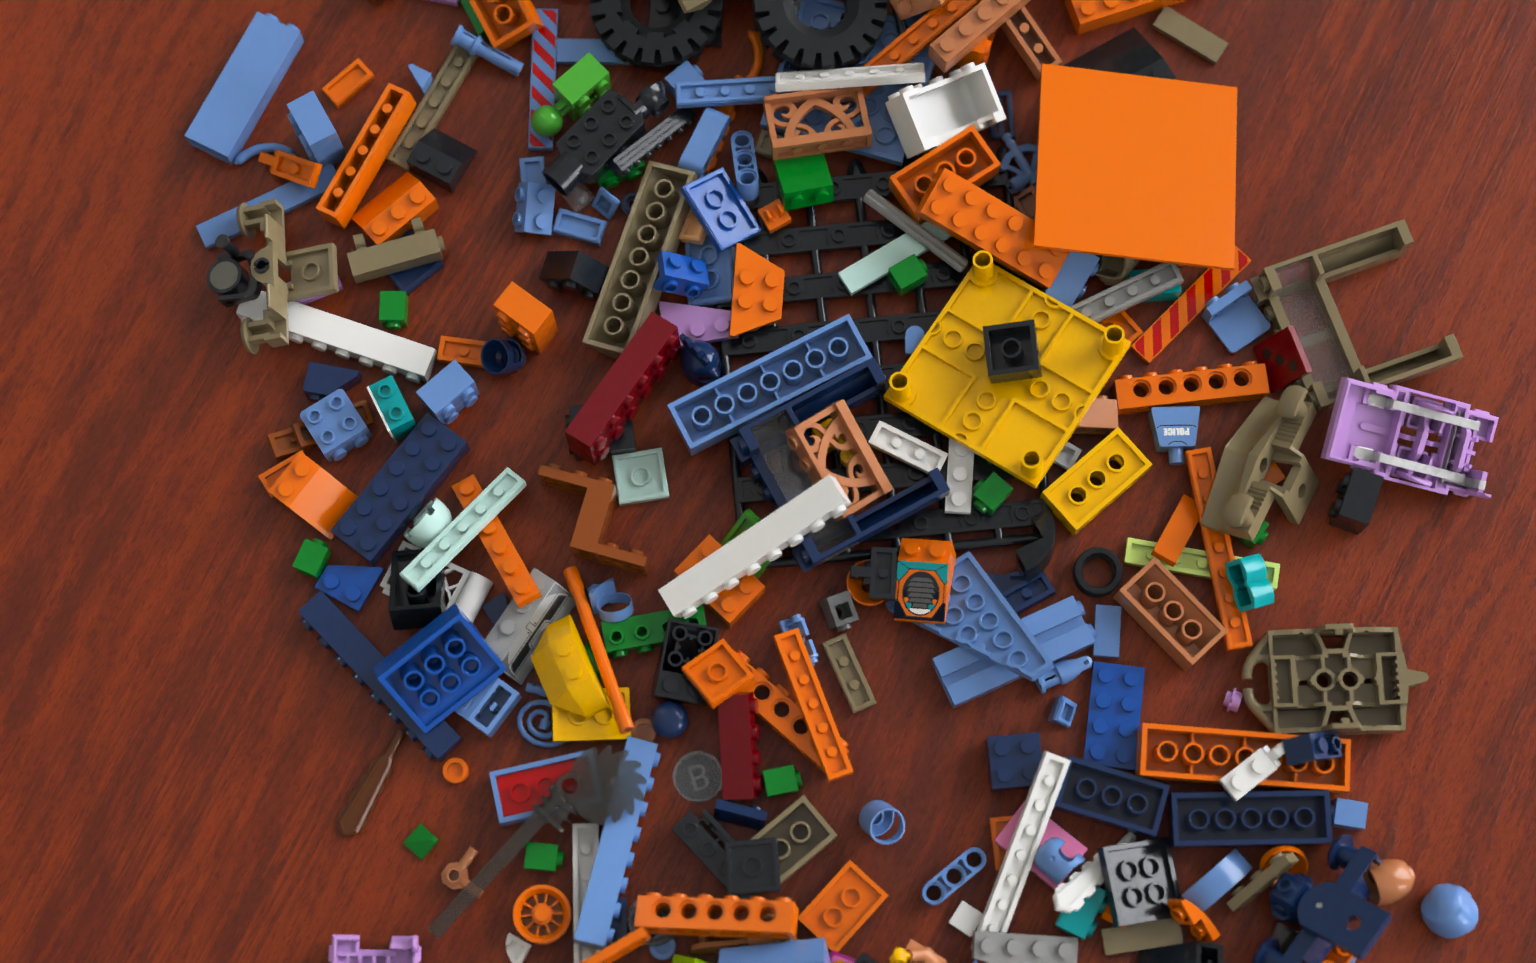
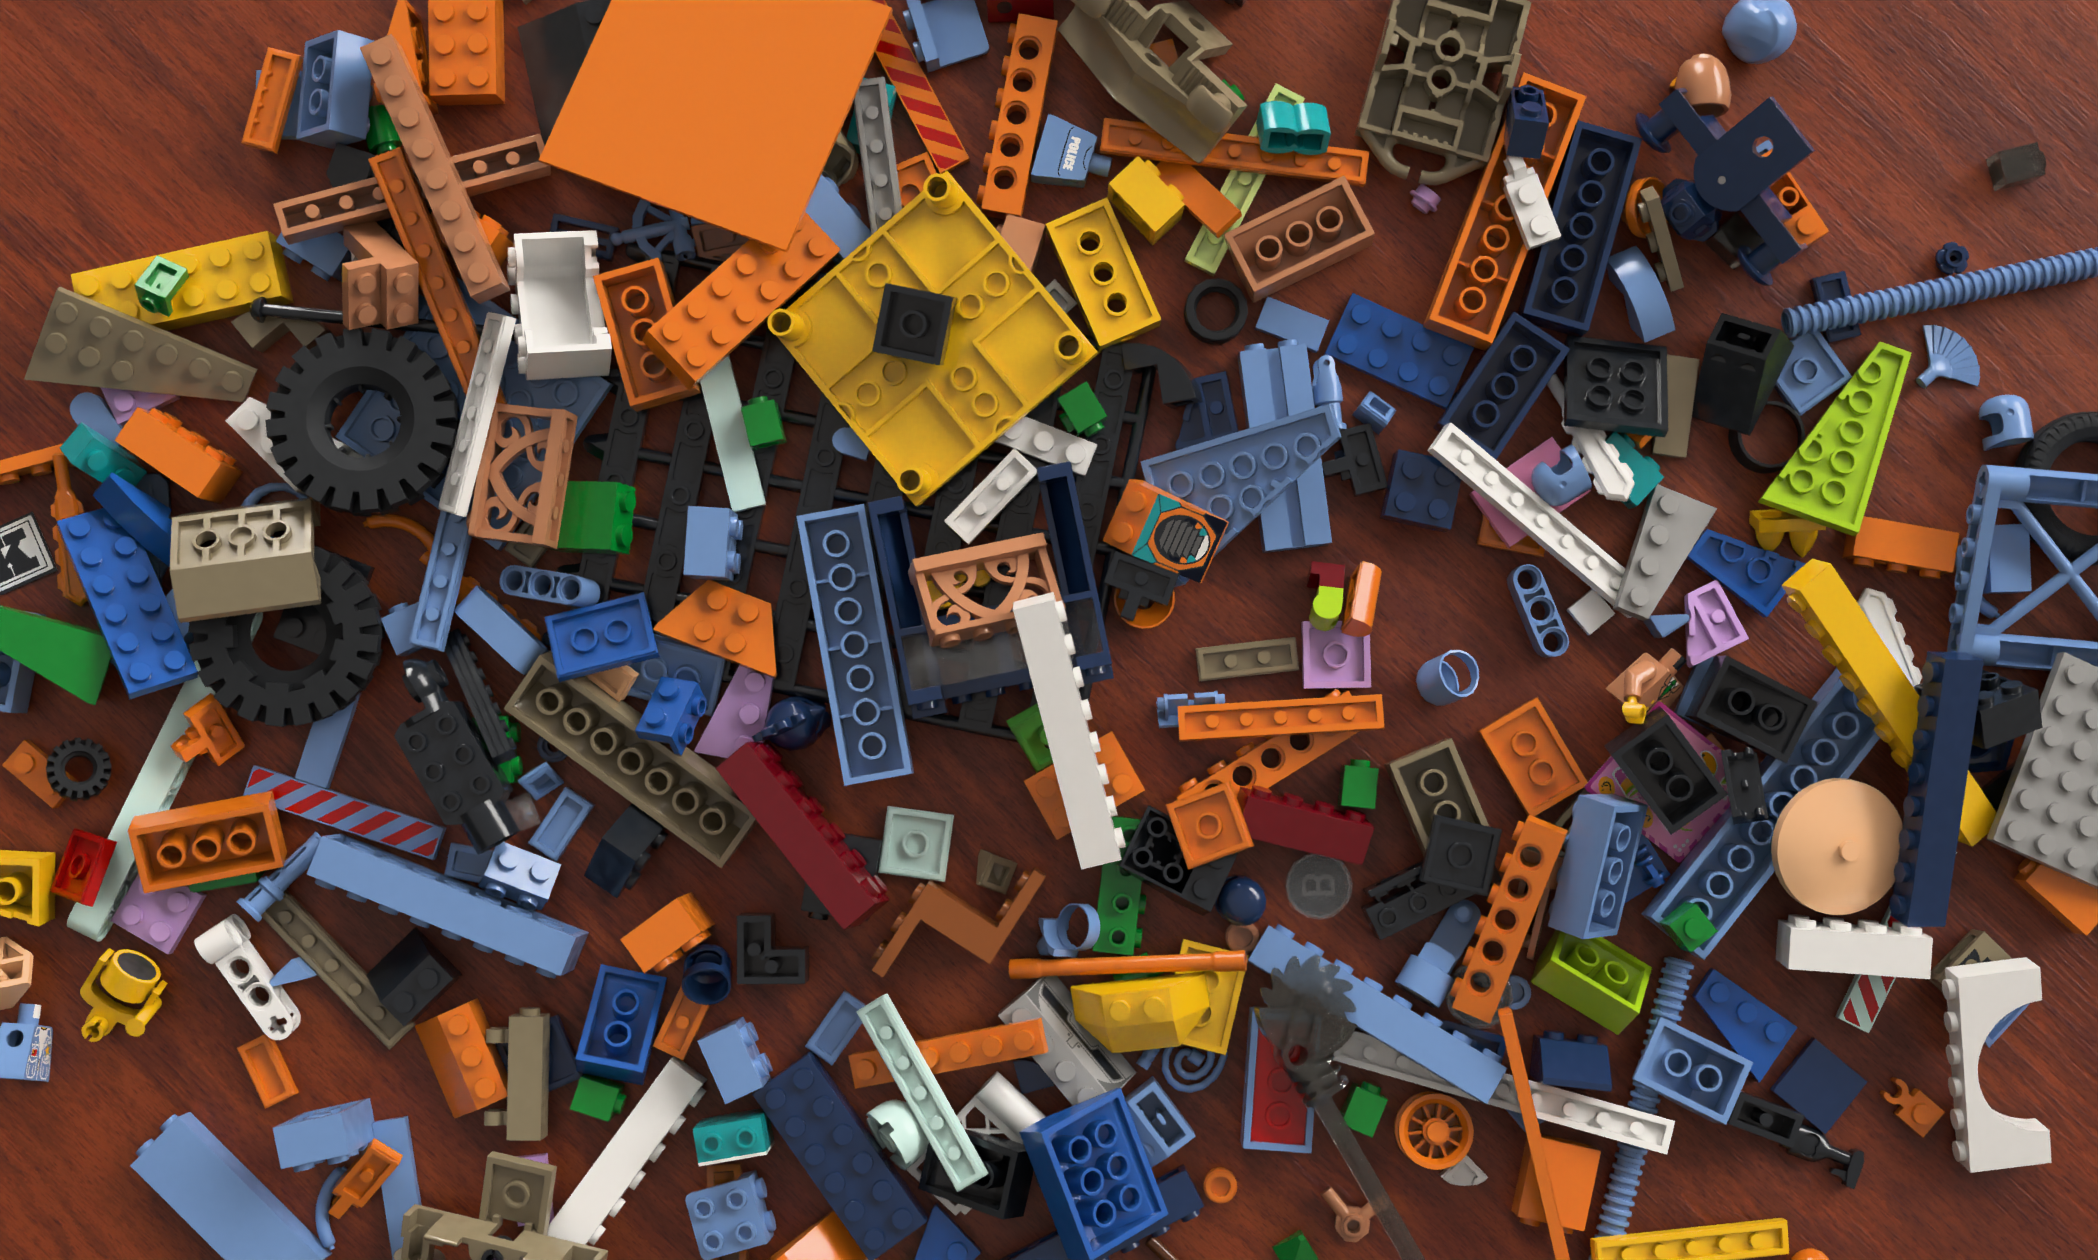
camera: 70 degrees left, 10 degrees up
(325, 379) = (667, 1211): dark blue slope -> none
(366, 156) = (378, 1075): orange brick -> none
(429, 28) = (230, 942): none -> white piece
(449, 309) = (621, 1025): none -> blue slope
(489, 460) = (836, 1028): none -> medium blue tile
(500, 165) = (447, 904): none -> medium blue brick
(526, 388) = (759, 957): none -> black brick
(573, 95) = (382, 777): bright green brick -> none
(637, 537) = (994, 871): none -> dark tan slope
(665, 877) = (1429, 973): none -> medium blue piece
(734, 813) = (1390, 835): dark blue plate -> none
(774, 216) = (630, 570): orange tile -> none
(810, 263) = (712, 543): none -> medium blue brick
(844, 605) = (1173, 638): dark grey brick -> none
(873, 736) = (1334, 658): none -> lavender plate
(915, 230) = (708, 395): light grey axle -> none
(919, 715) = (1328, 600): none -> leg
(919, 741) = (1361, 600): none -> orange brick
(1021, 708) = (1358, 461): none -> black hinge
(1160, 493) = (1146, 199): none -> yellow brick
(1189, 914) = (1677, 337): orange slope -> none
(1348, 814) = (1607, 105): medium blue brick -> none

